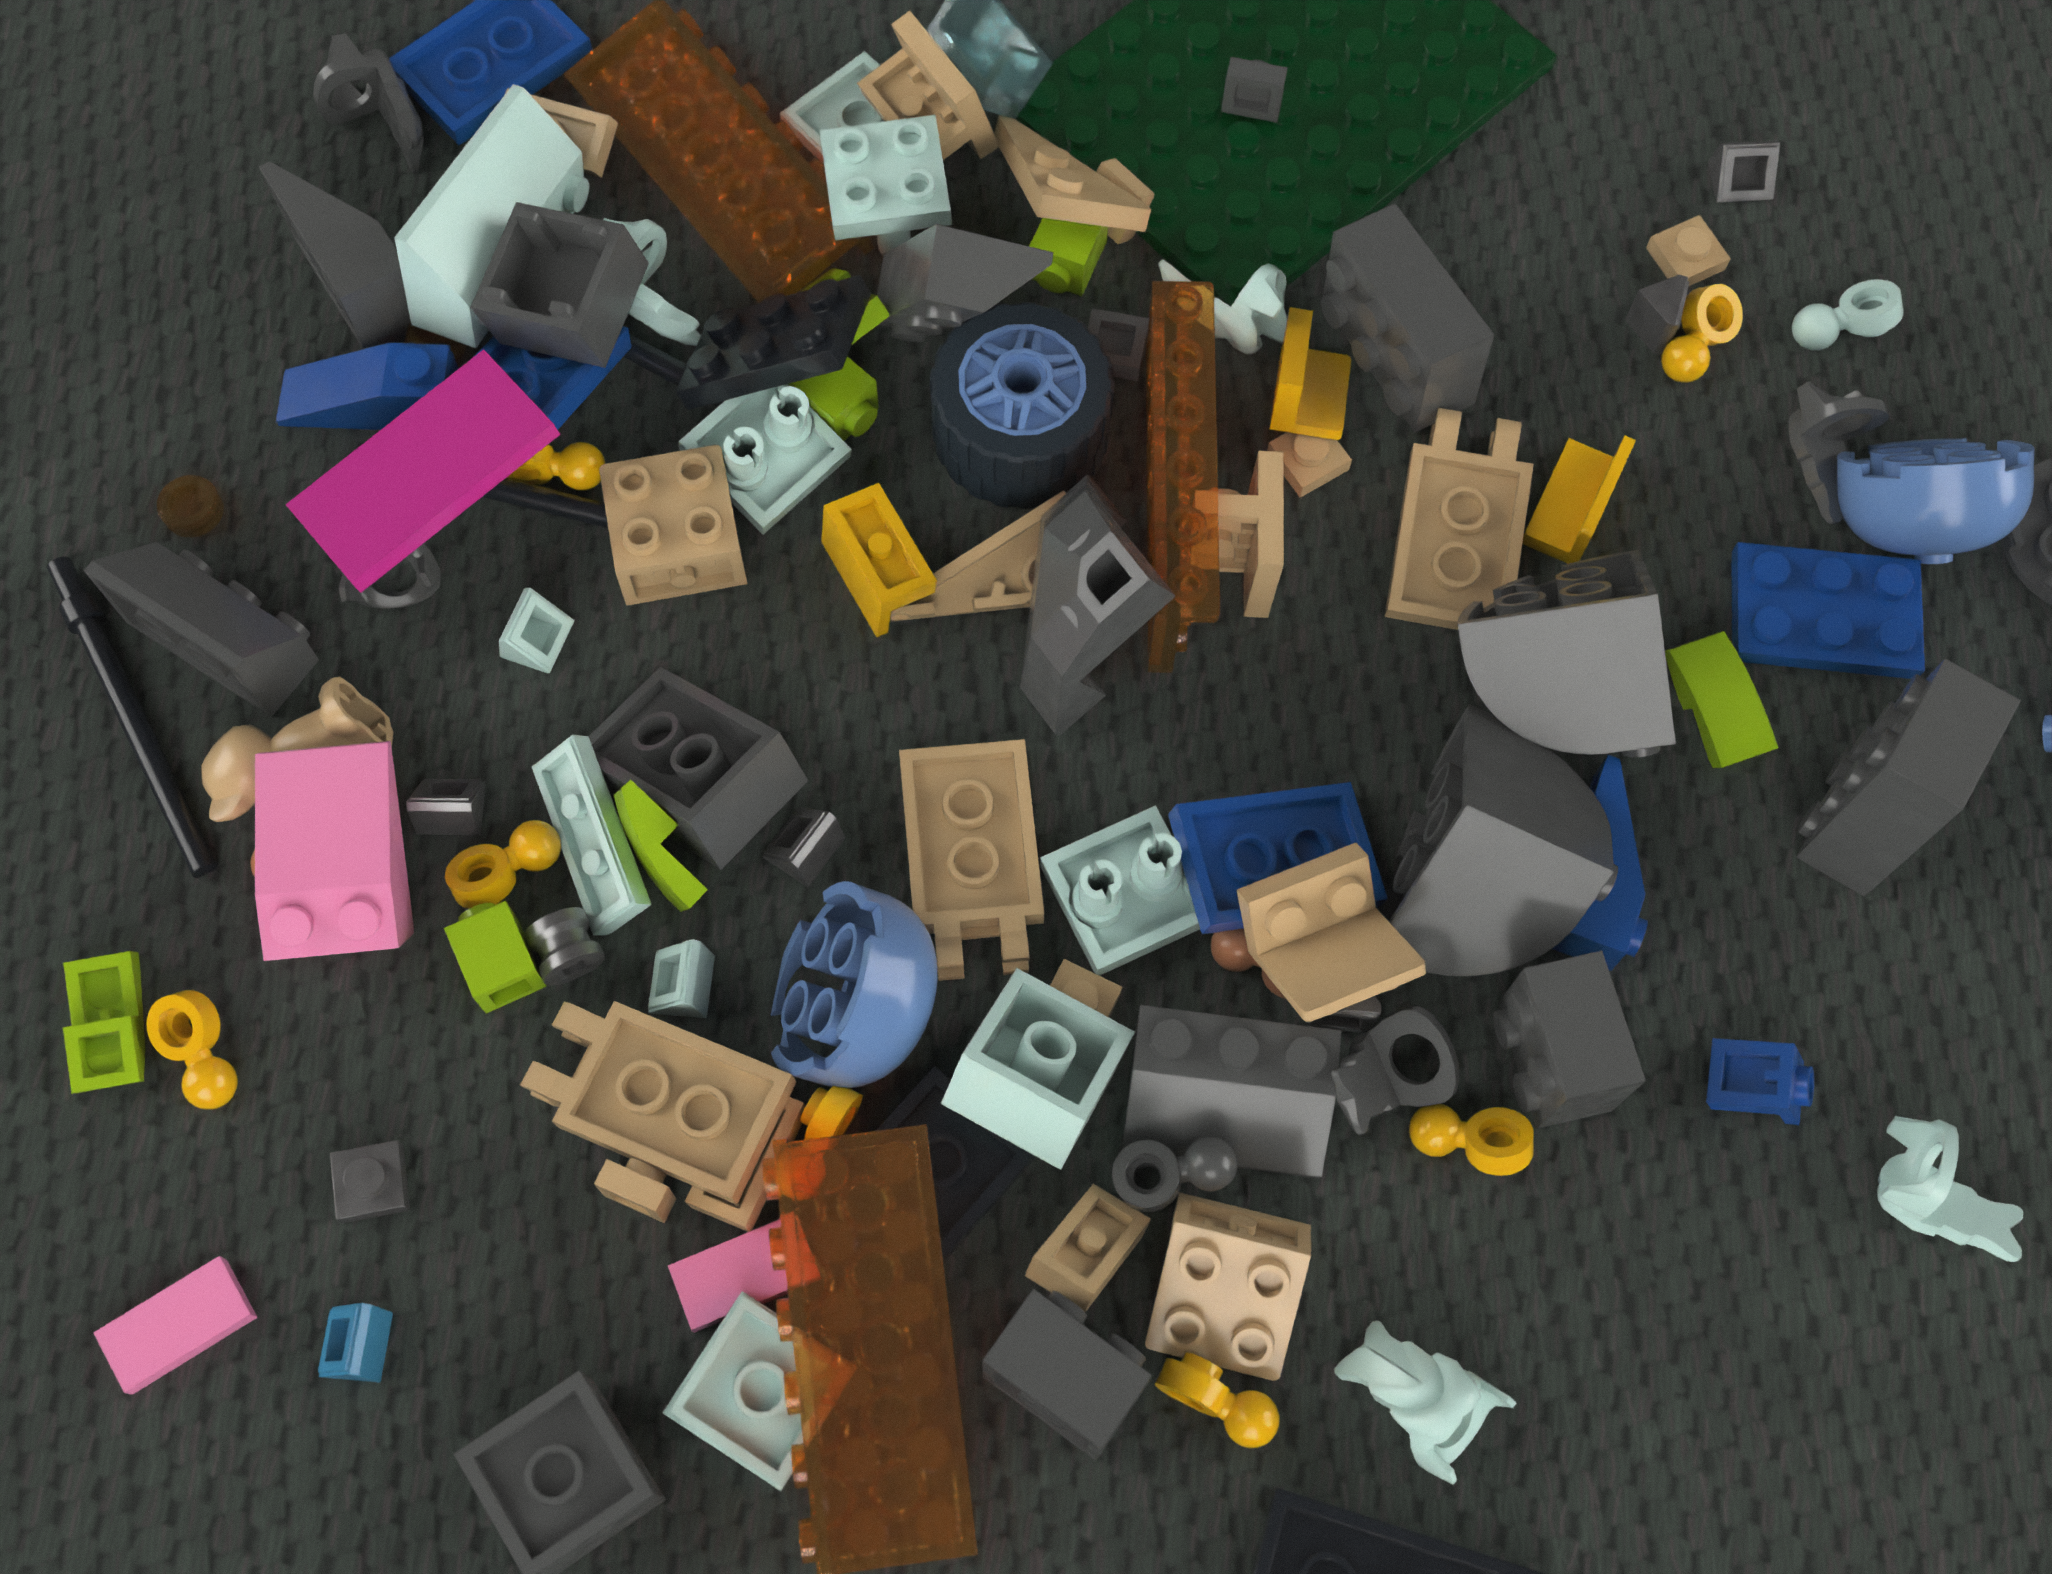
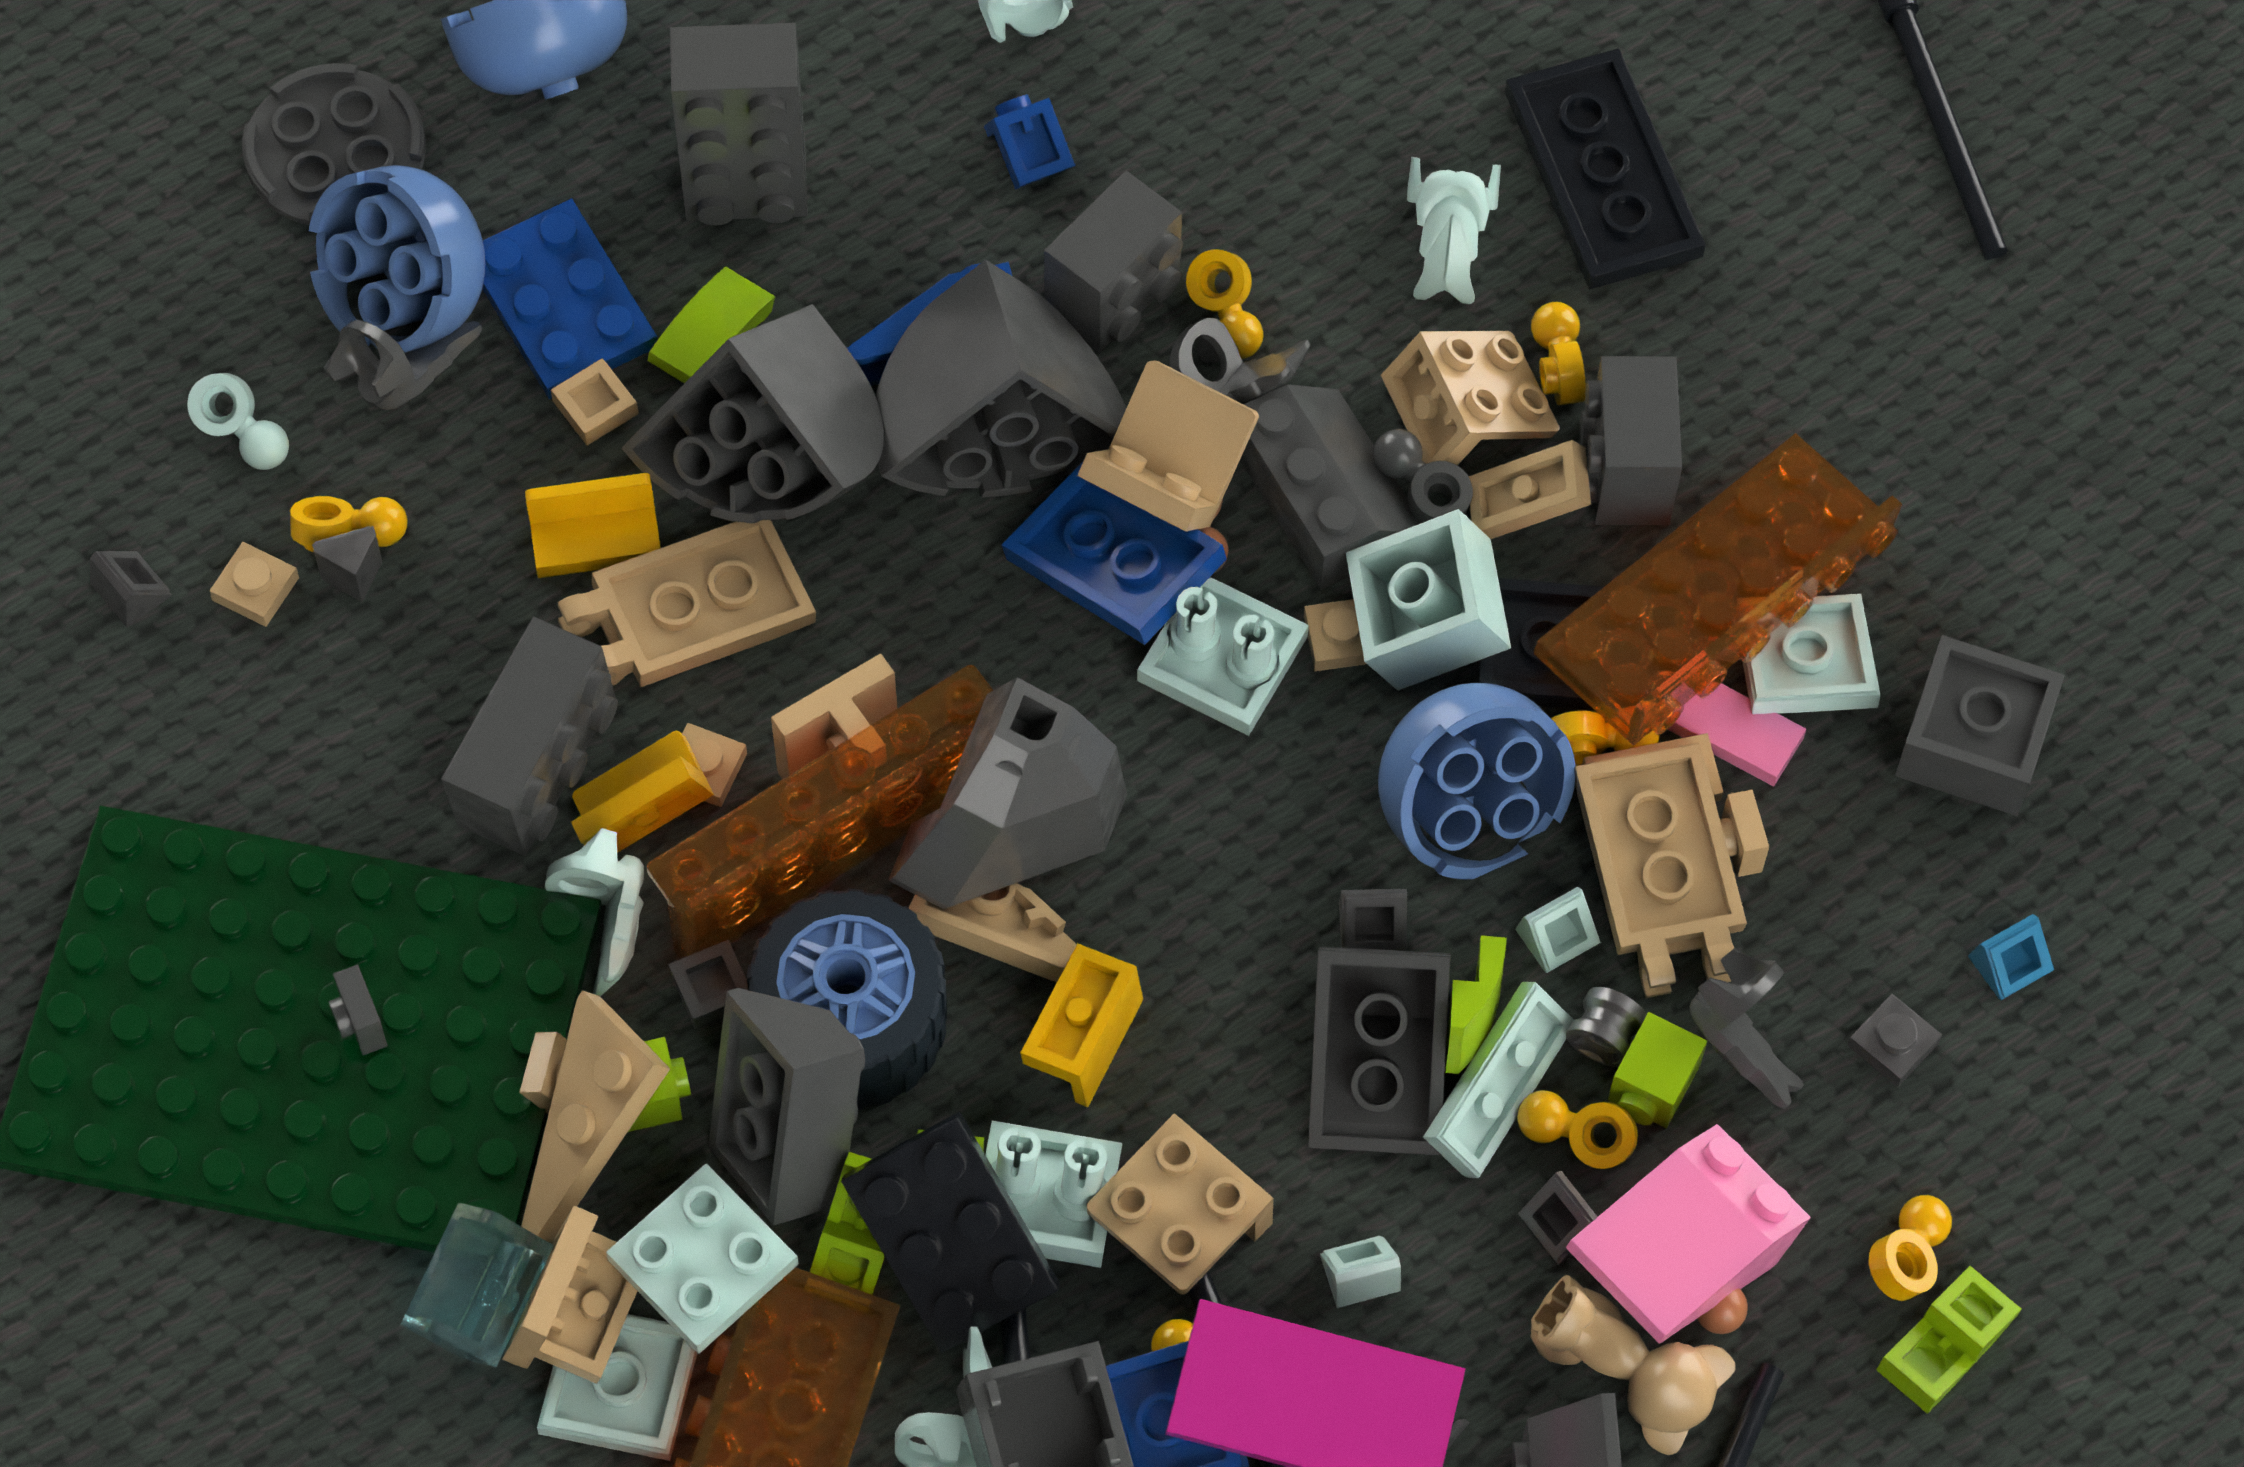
camera: 125 degrees left, 5 degrees down
(175, 1325) = (2108, 1094): bright pink tile -> none
(468, 1033) = (1722, 1019): none -> dark grey hair
(972, 848) = (1275, 790): tan tile -> none
(1702, 569) = (594, 401): none -> tan plate

